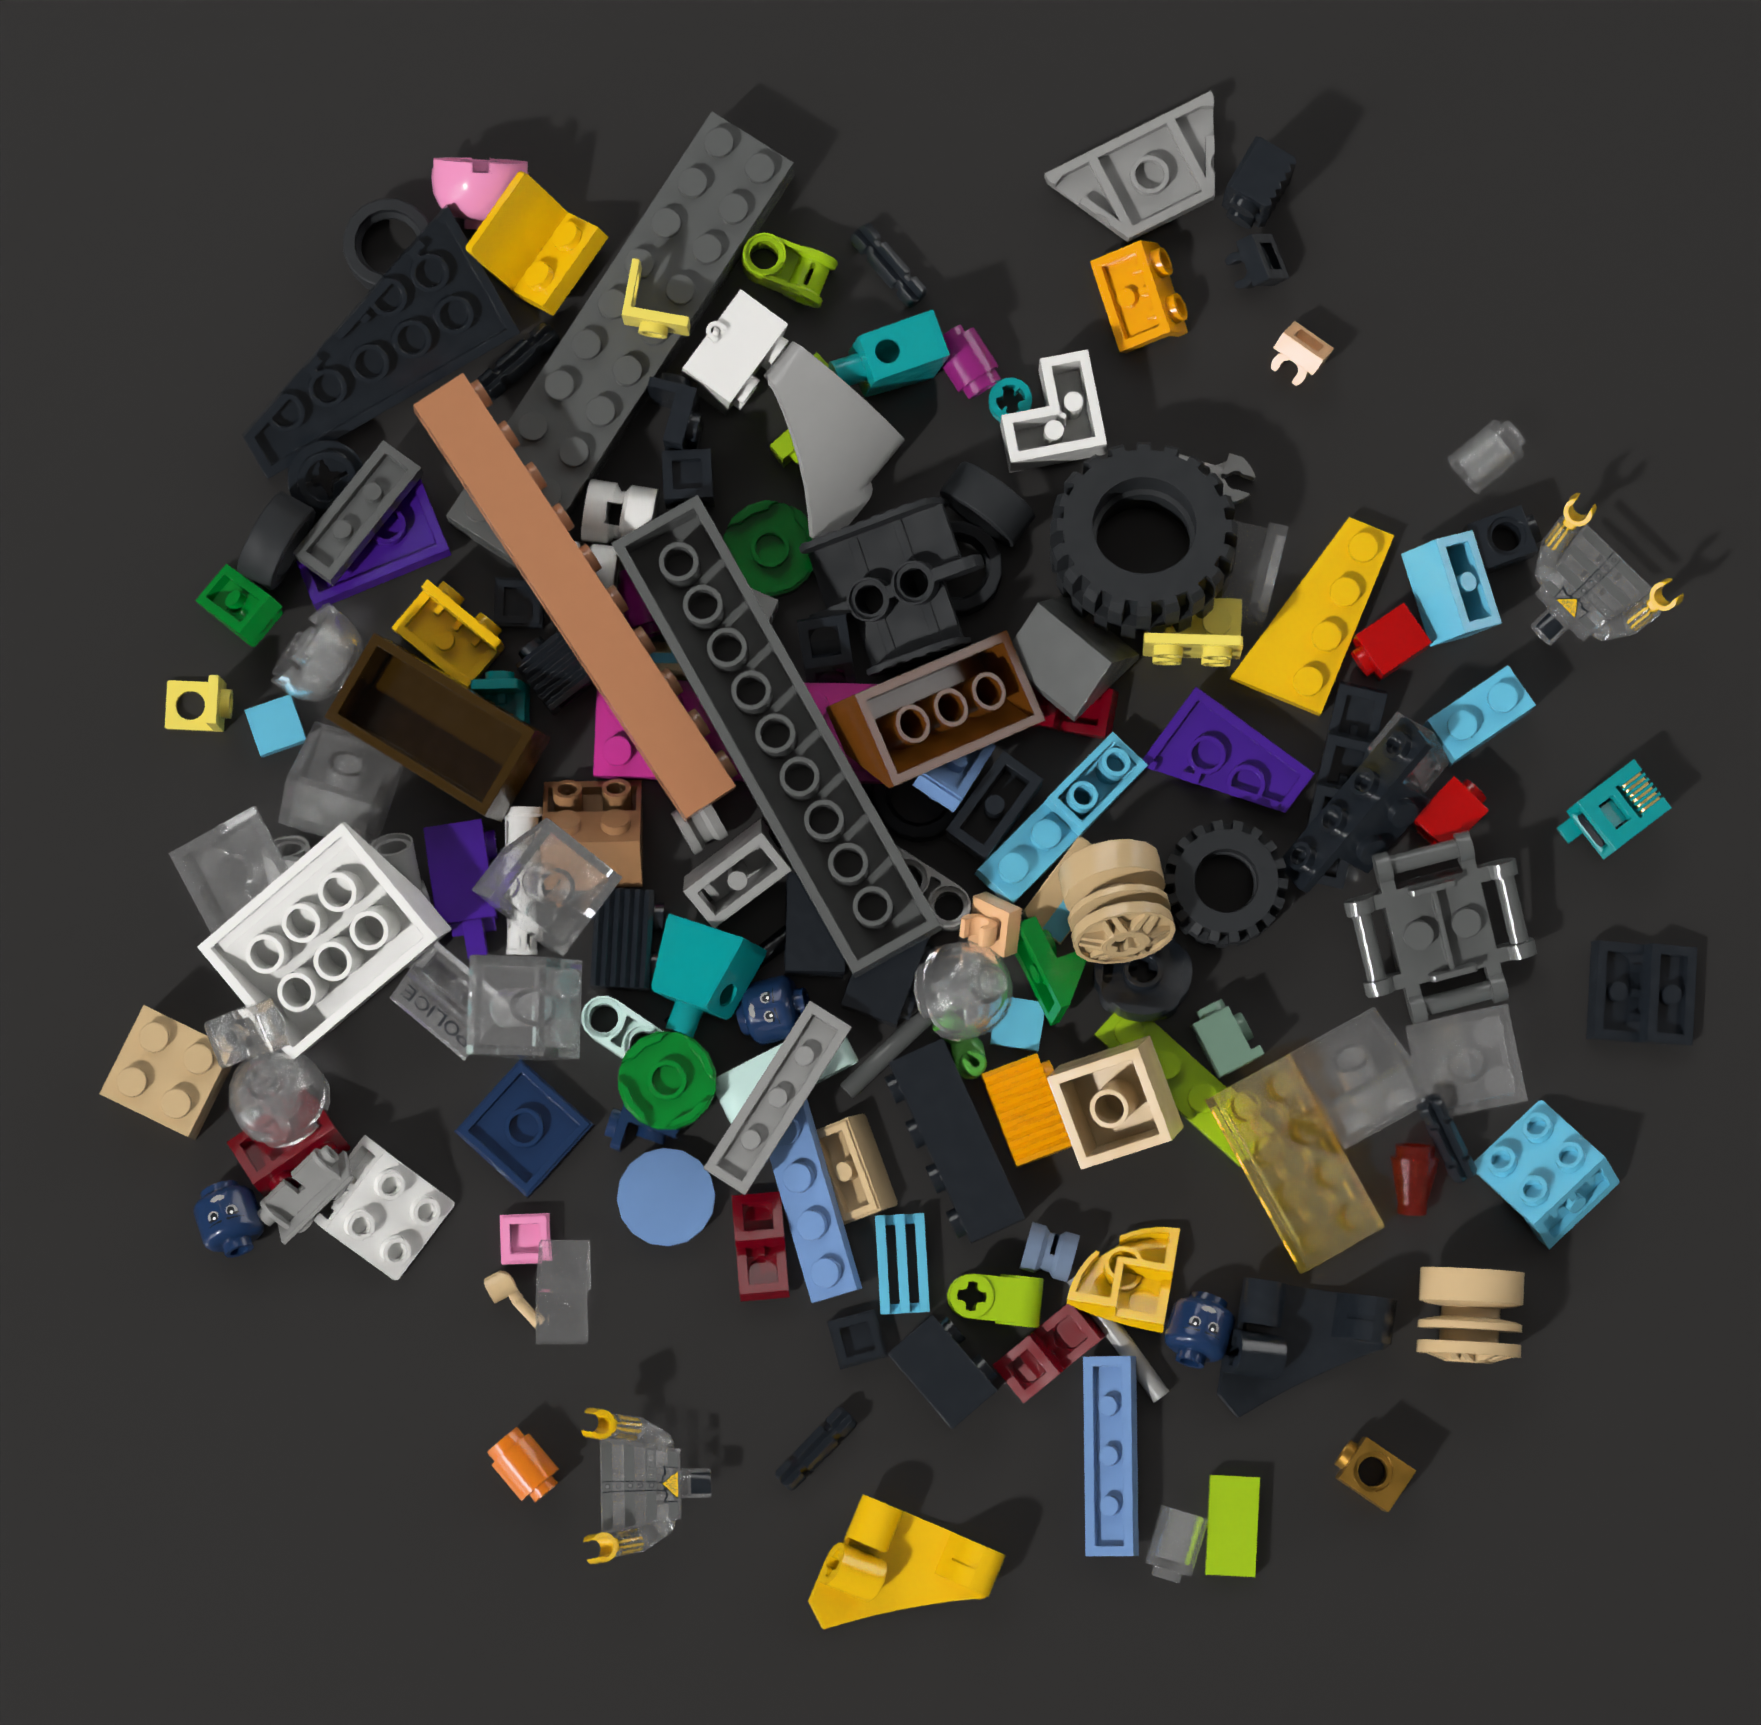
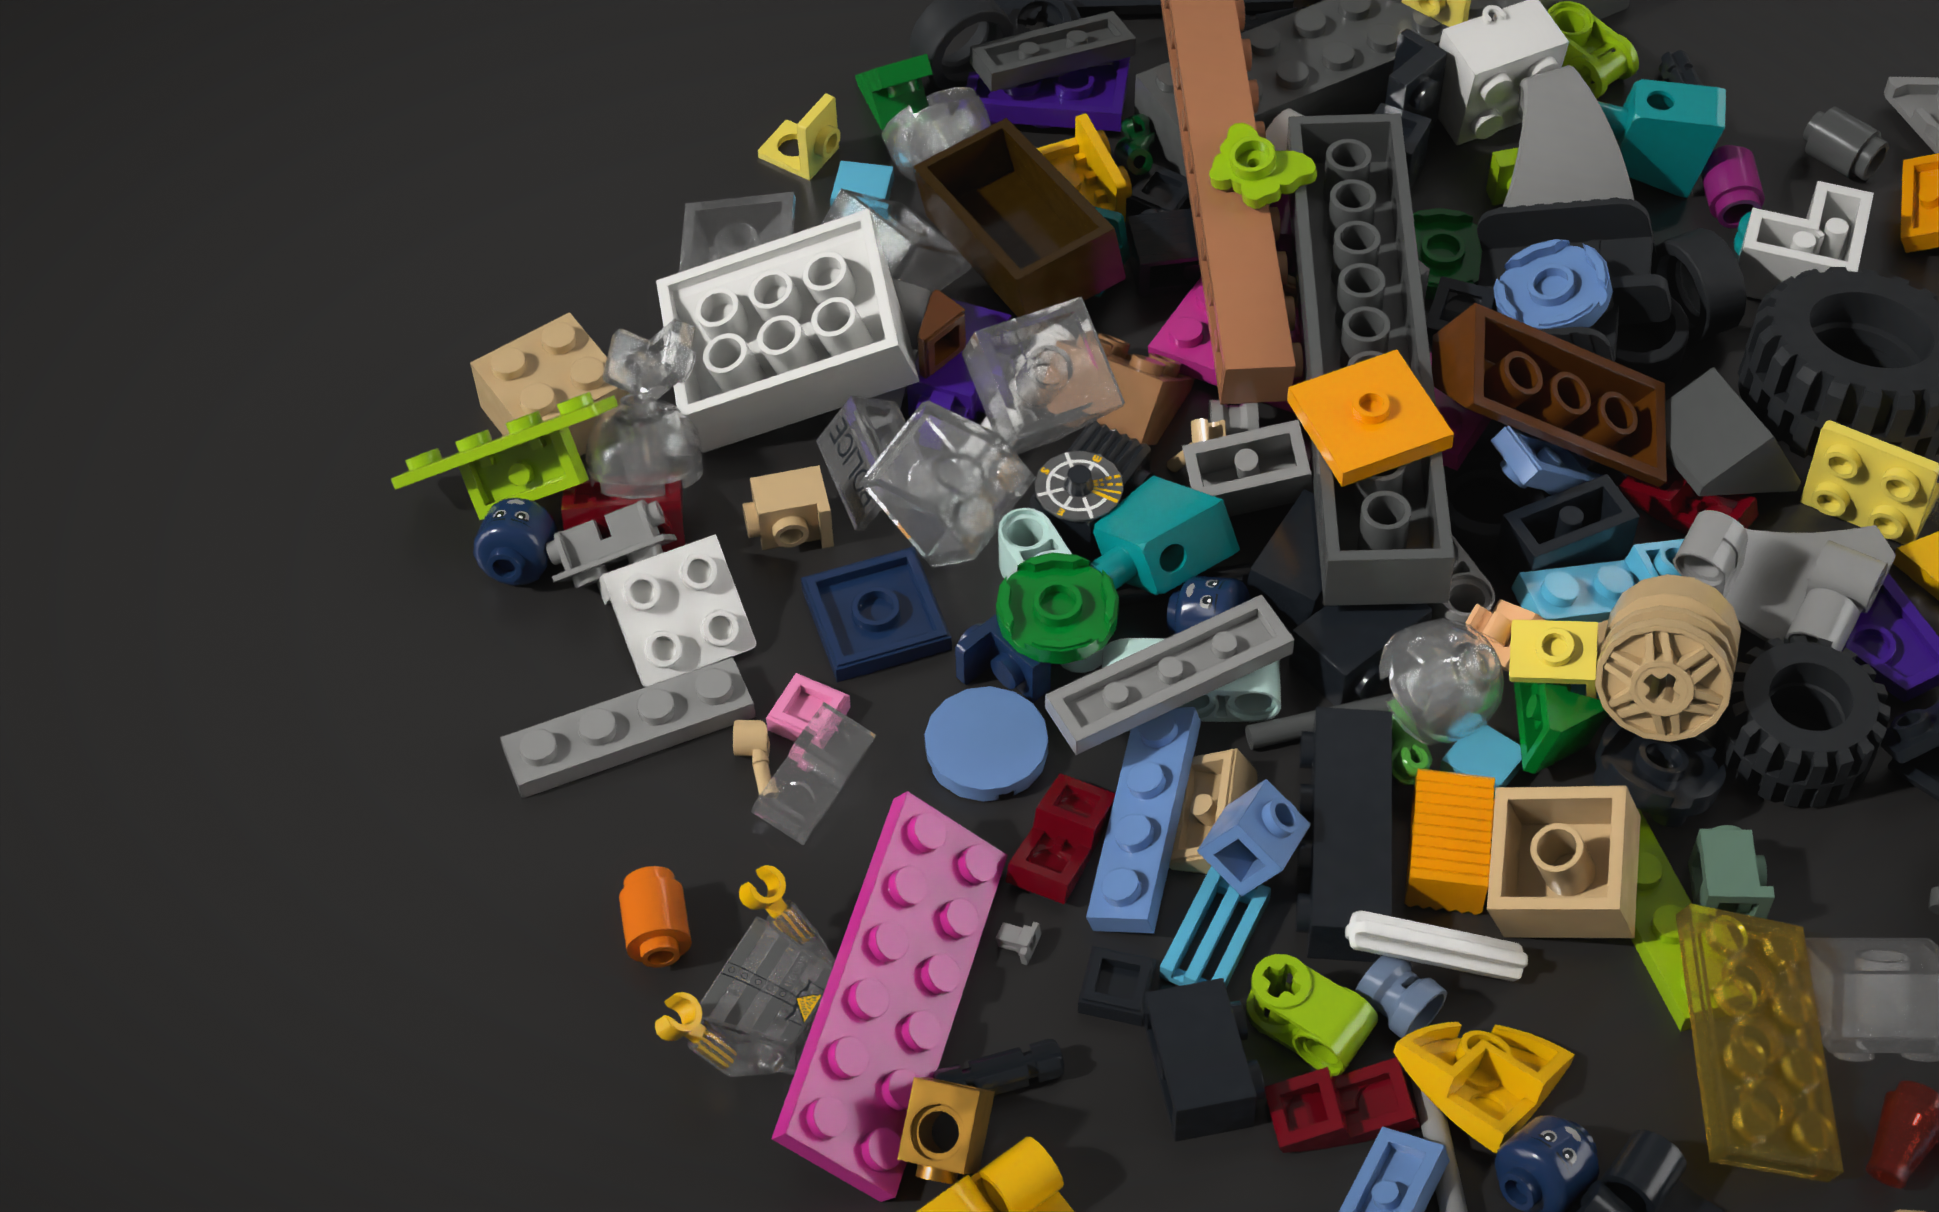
camera: 30 degrees right, 30 degrees down
(188, 1164) = (525, 464): none -> lime bracket
(405, 1321) = (627, 727): none -> light grey plate
(412, 1081) = (789, 509): none -> tan brick
(447, 883) = (940, 334): none -> reddish brown slope
(472, 568) = (1135, 147): none -> dark green arm
(621, 957) = (1079, 486): none -> flat silver piece
(633, 616) = (1257, 169): none -> lime animal
(688, 859) = (1200, 431): none -> tan hand
(720, 1438) = (890, 996): none -> dark pink plate
(773, 1339) = (1019, 939): none -> light grey piece
(806, 1498) = (971, 1111): none -> pearl gold brick
(823, 832) = (1370, 417): none -> light orange plate
(890, 601) = (1554, 286): none -> medium blue tile
(899, 1193) = (1254, 837): none -> medium blue brick
(1036, 937) = (1554, 652): none -> light yellow bracket
(1037, 268) = (1845, 143): none -> dark grey brick
(1058, 1210) = (1436, 946): none -> white axle
(1172, 766) = (1788, 580): none -> light grey panel

